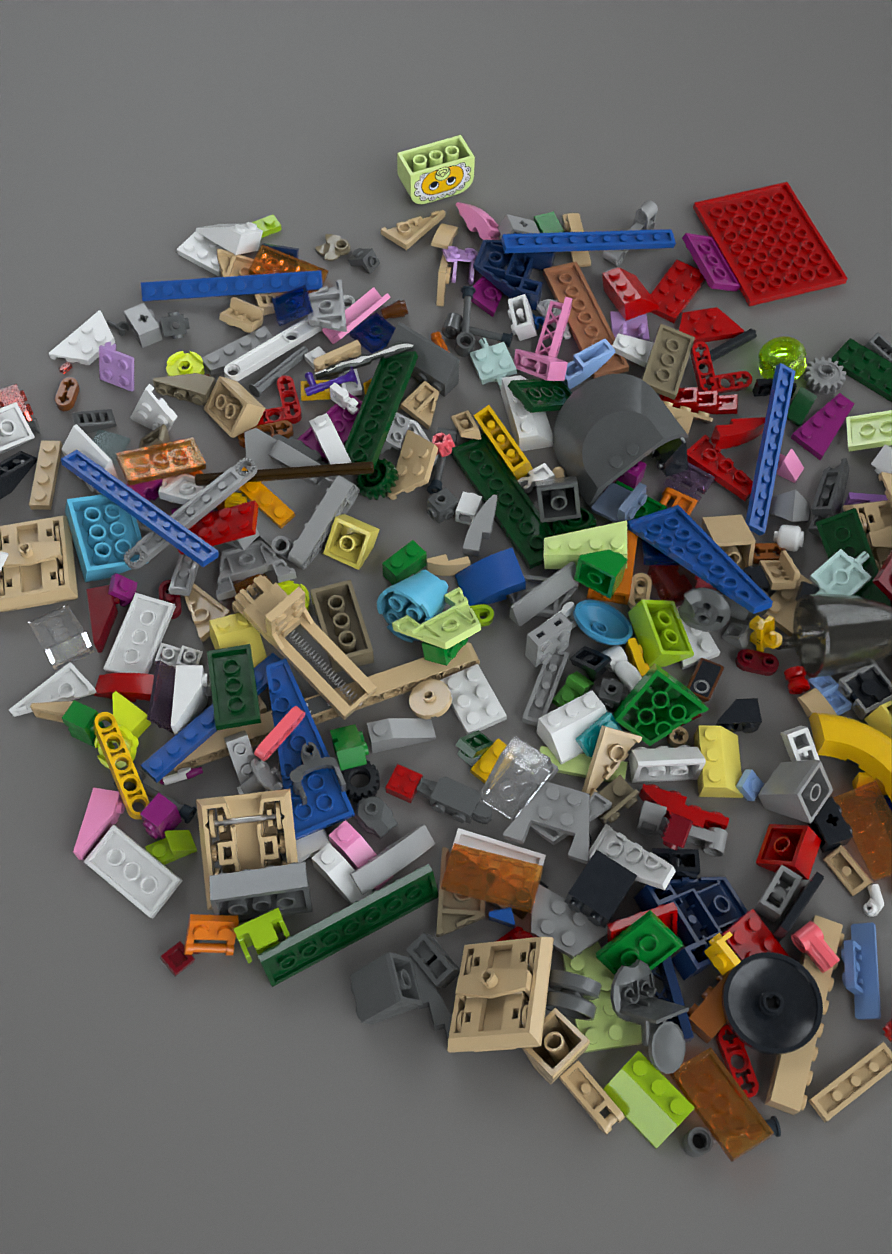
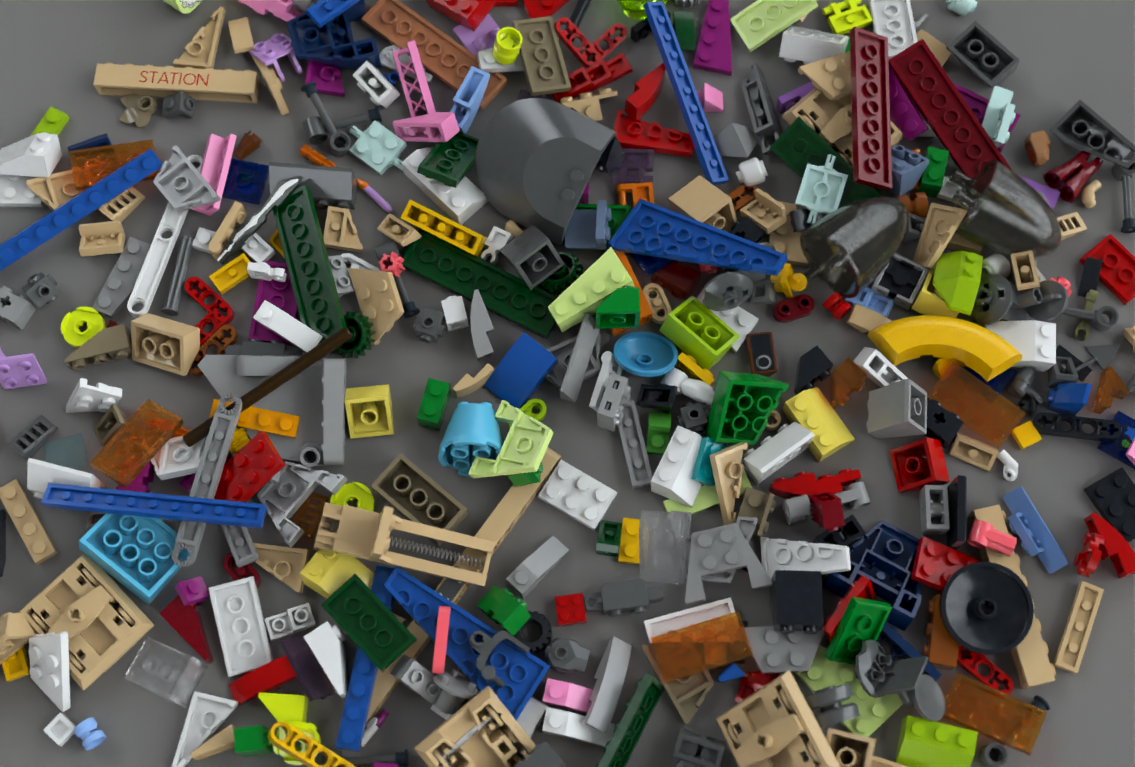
camera: 30 degrees left, 10 degrees up
(292, 305) = (147, 201): clear blue tile -> none
(316, 388) = (229, 277): dark purple piece -> none
(387, 249) = (165, 81): none -> tan brick
(430, 707) = (550, 526): tan plate -> none
(466, 394) = (364, 186): none -> lavender piece
(643, 337) = (507, 45): none -> neon yellow wheel
(721, 954) = (923, 593): yellow bracket -> none
(749, 785) = (855, 427): light blue plate -> none
(765, 743) = (845, 380): none -> clear orange slope

